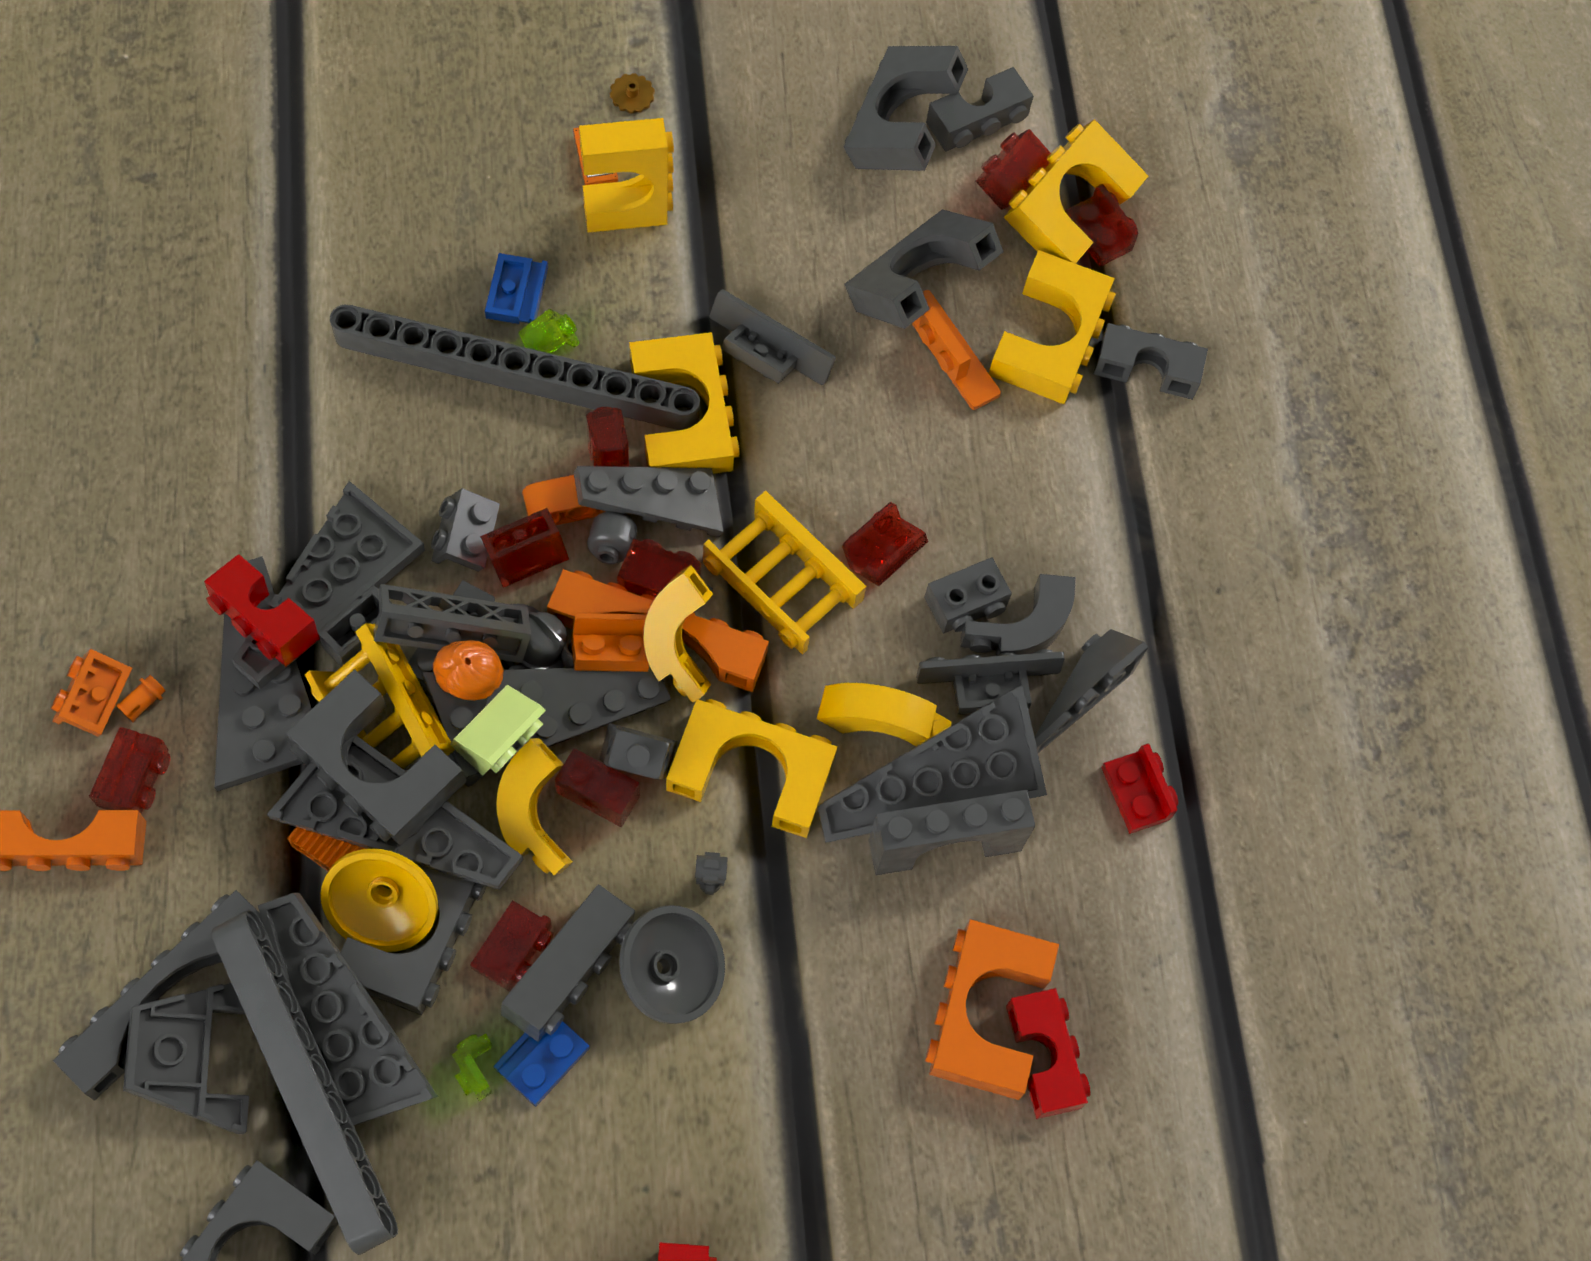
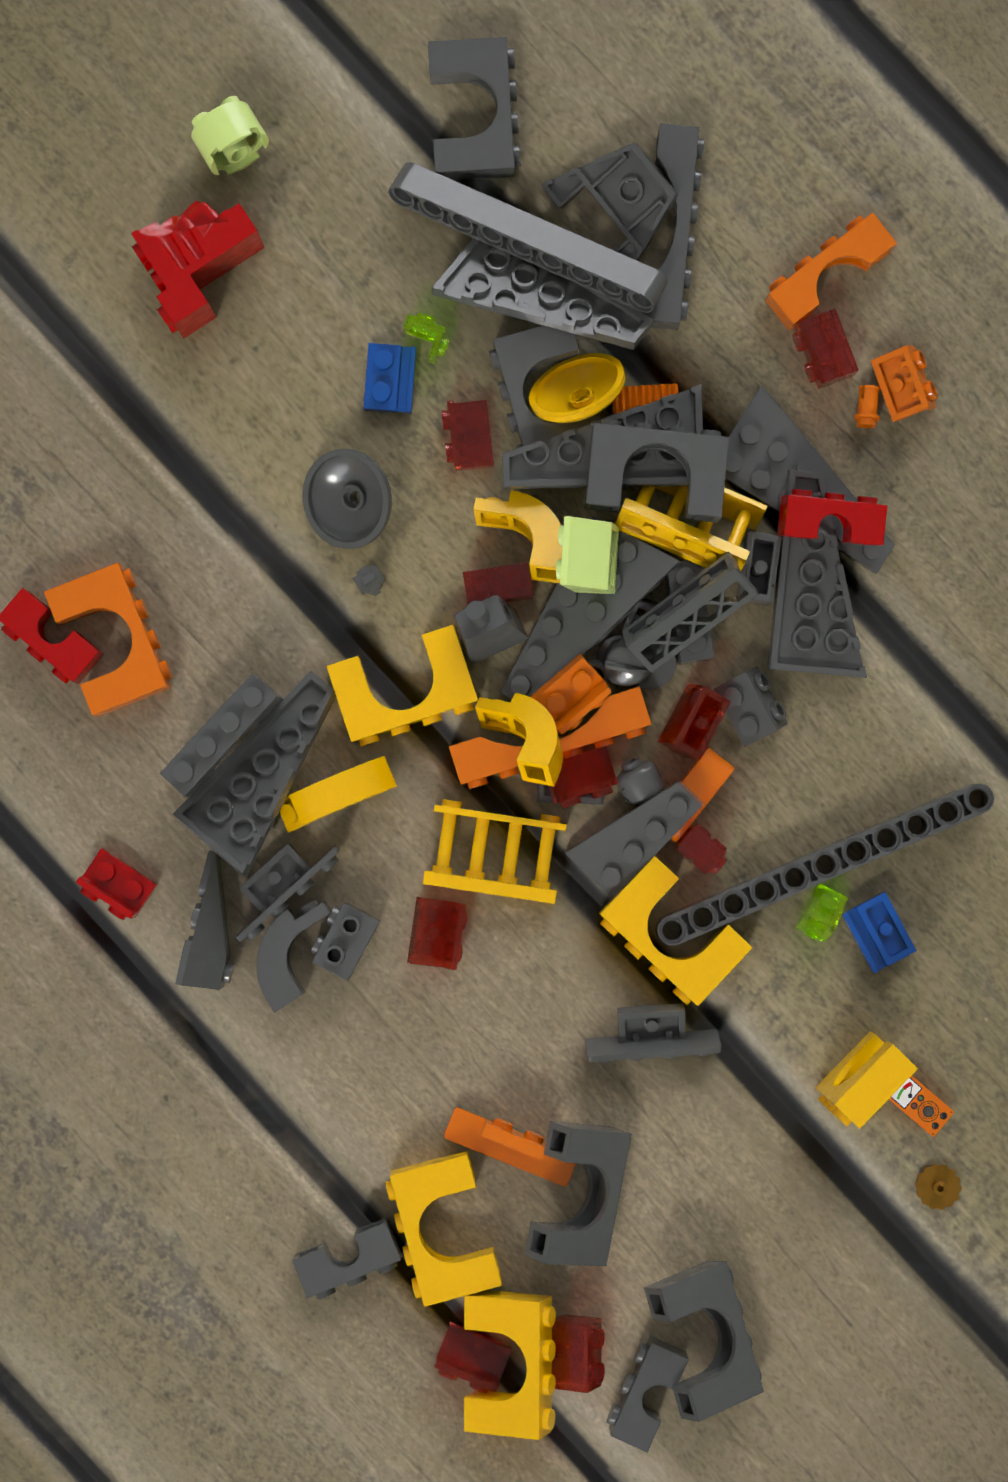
camera: 150 degrees right, 20 degrees up
(468, 670) = (647, 586): orange hair -> none
(567, 964) = (418, 447): dark grey brick -> none

